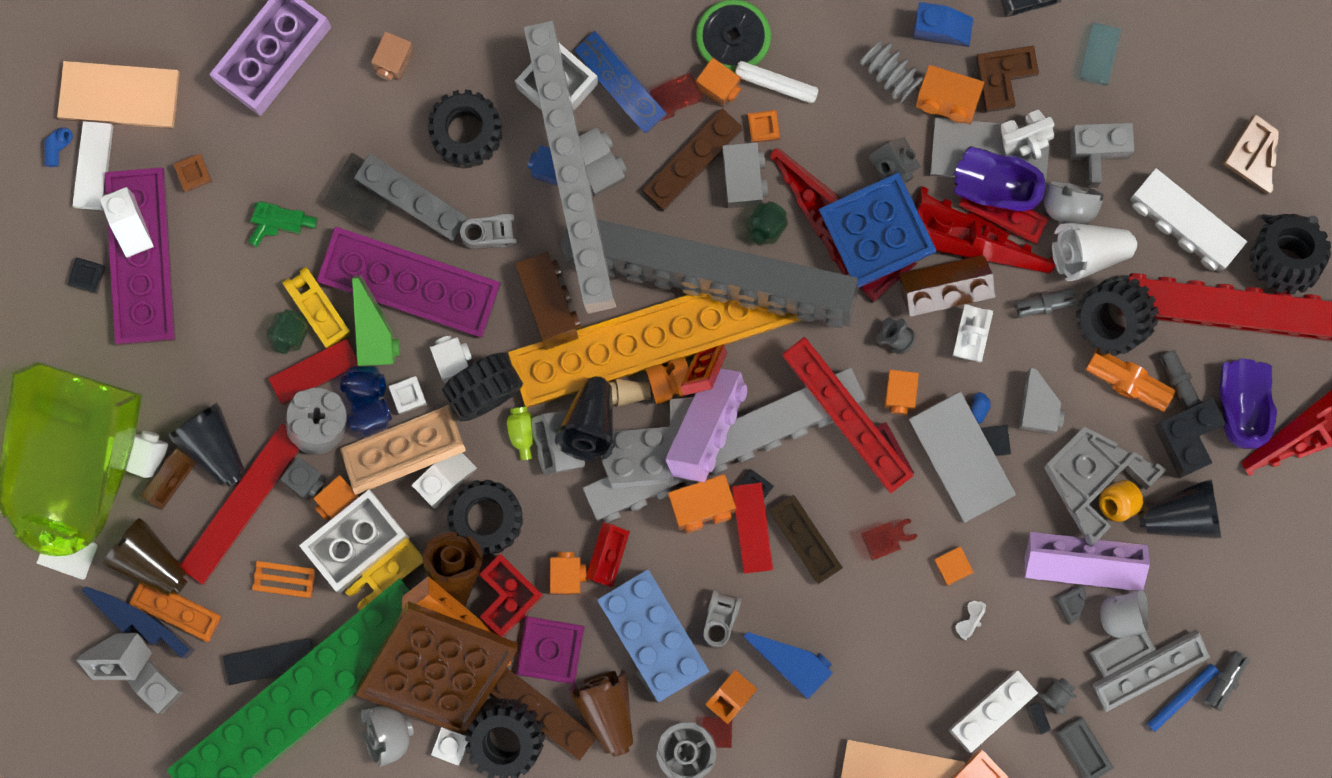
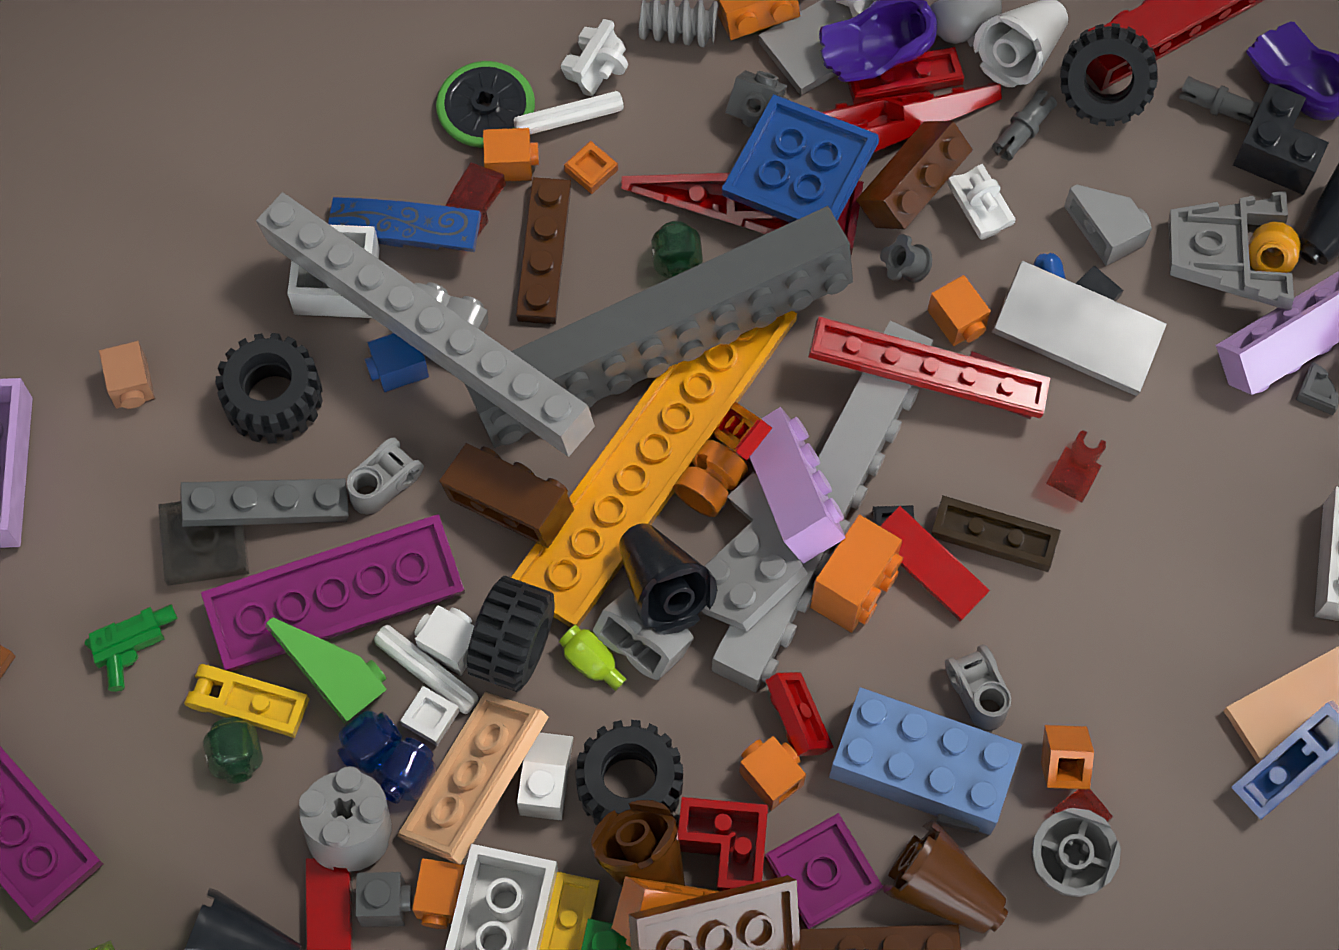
camera: 40 degrees left, 15 degrees down
(314, 371) = (299, 768): red tile -> none
(426, 366) = (426, 669): none -> white axle
(629, 392) = (679, 522): tan cone -> none
(743, 175) = (611, 223): light grey brick -> none
(797, 665) = (1104, 670): blue slope -> none
(824, 59) = (600, 58): none -> white hips
(953, 566) = (1168, 444): orange tile -> none
(967, 627) = (1238, 496): white piece -> none
(1130, 380) = (1172, 134): orange piece -> none

